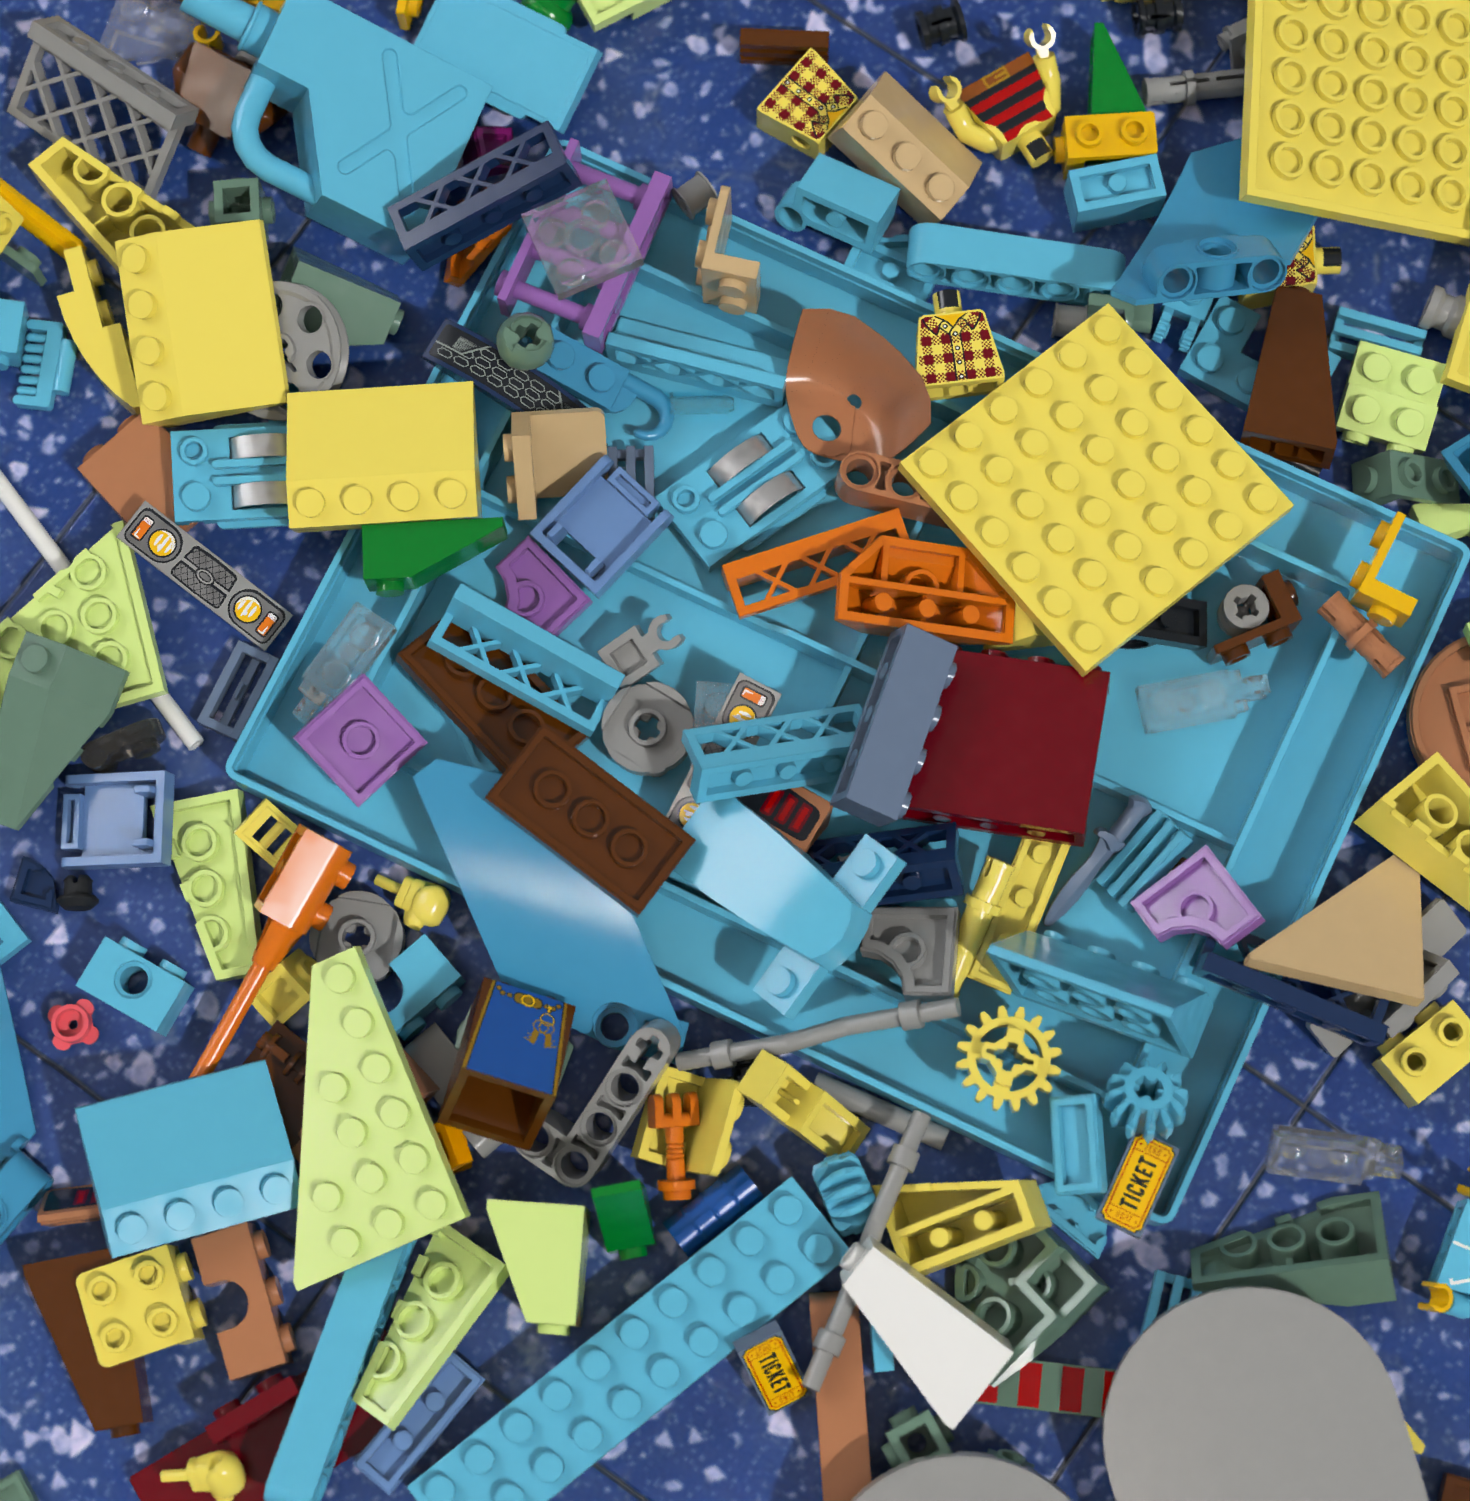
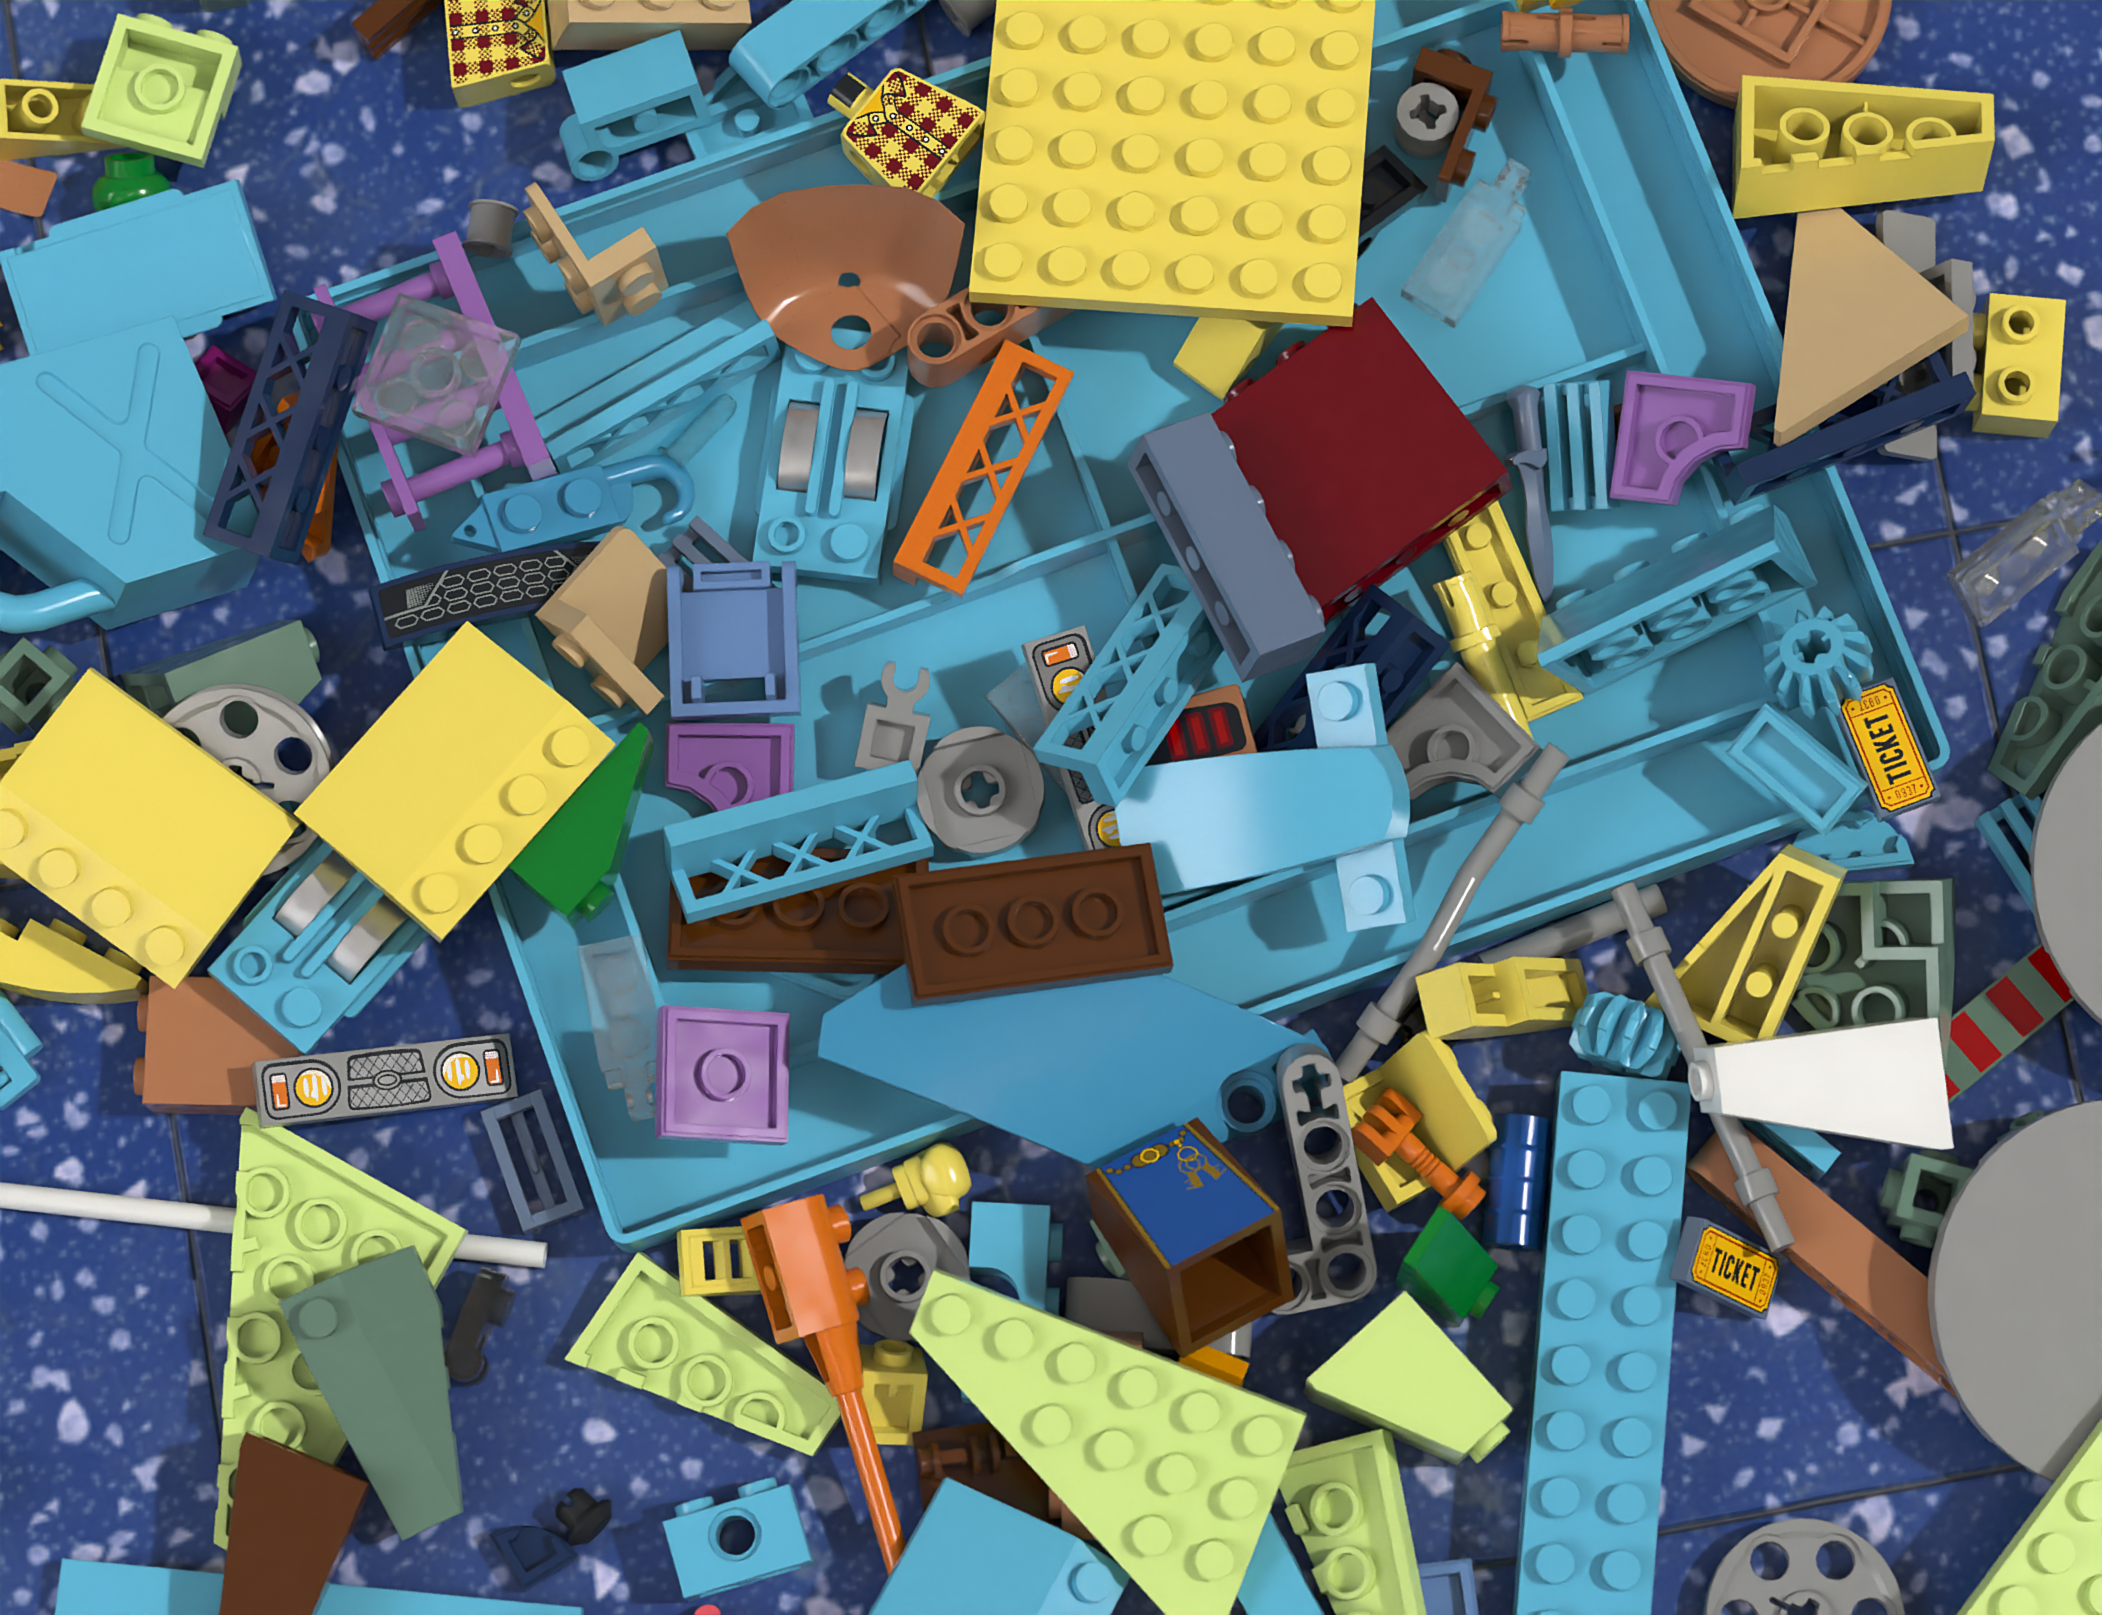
camera: 45 degrees left, 0 degrees up
(112, 820) = (541, 1411): medium blue container -> none
(515, 329) = (495, 516): sand green piece -> none
(926, 586) = (1115, 385): orange wedge -> none
(1013, 1038) = (1665, 778): light yellow gear -> none

